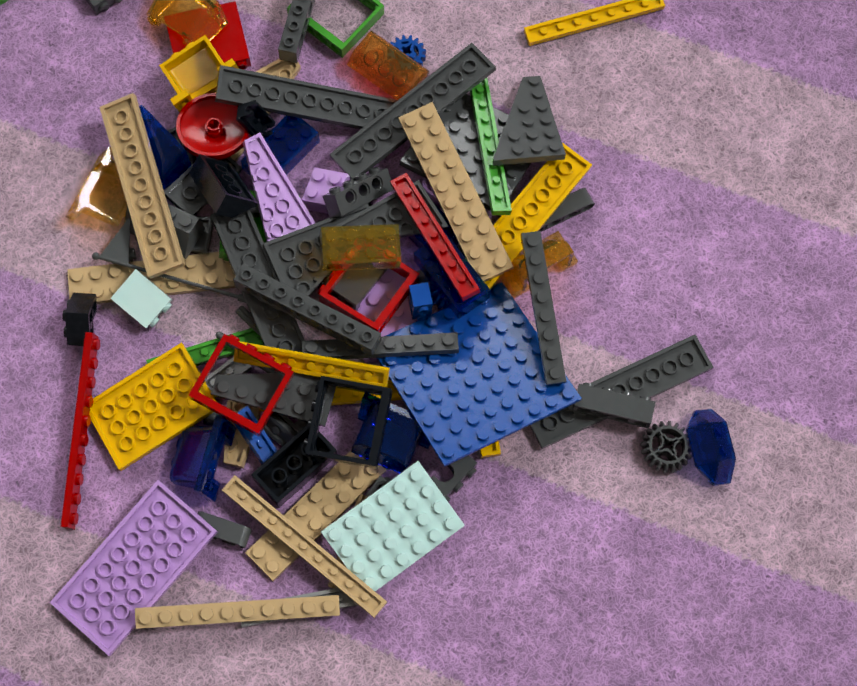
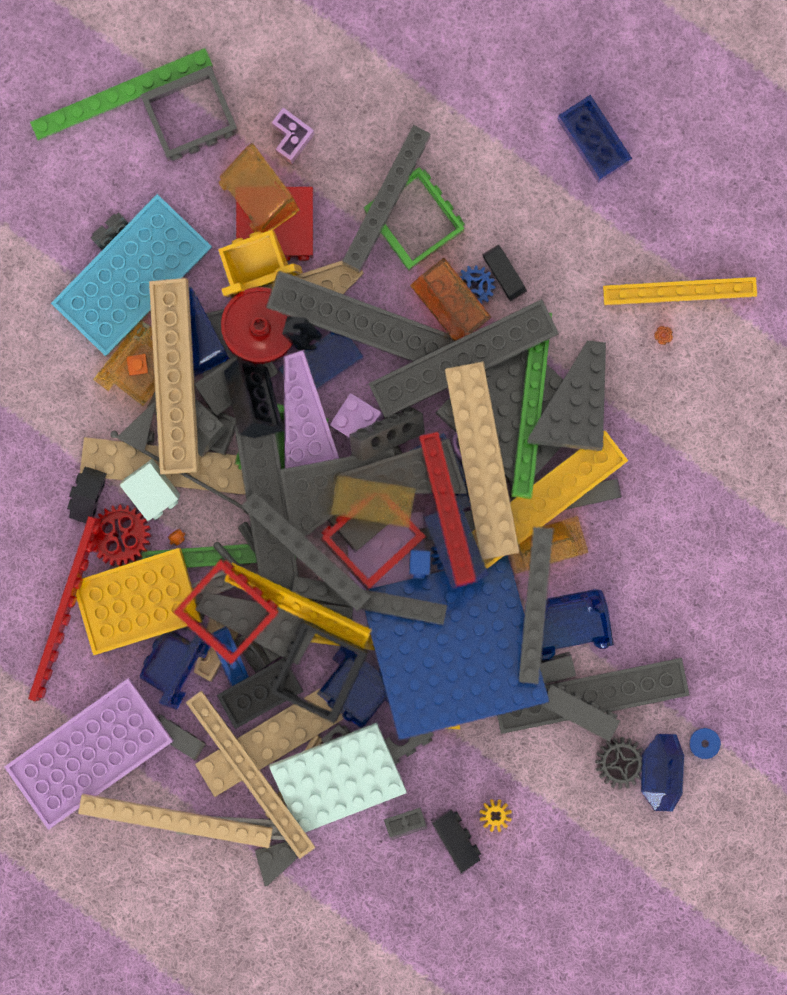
camera: 20 degrees right, 15 degrees up
(57, 81) = (103, 236): none -> dark grey hinge
(71, 127) = (114, 287): none -> medium azure plate
(105, 193) = (137, 365): none -> orange plate
(138, 341) = (137, 530): none -> red gear
(177, 339) = (176, 537): none -> orange plate
(349, 629) = (274, 860): none -> dark grey wing
(431, 36) = (504, 273): none -> black beam
(472, 558) = (405, 824): none -> dark grey hinge
(526, 561) = (456, 840): none -> black slope
(555, 521) = (495, 808): none -> yellow gear
(581, 371) = (557, 668): none -> dark grey hinge
(588, 325) = (576, 621): none -> clear blue windscreen
(591, 54) = (668, 335): none -> clear orange plate
(735, 416) = (713, 743): none -> blue piece

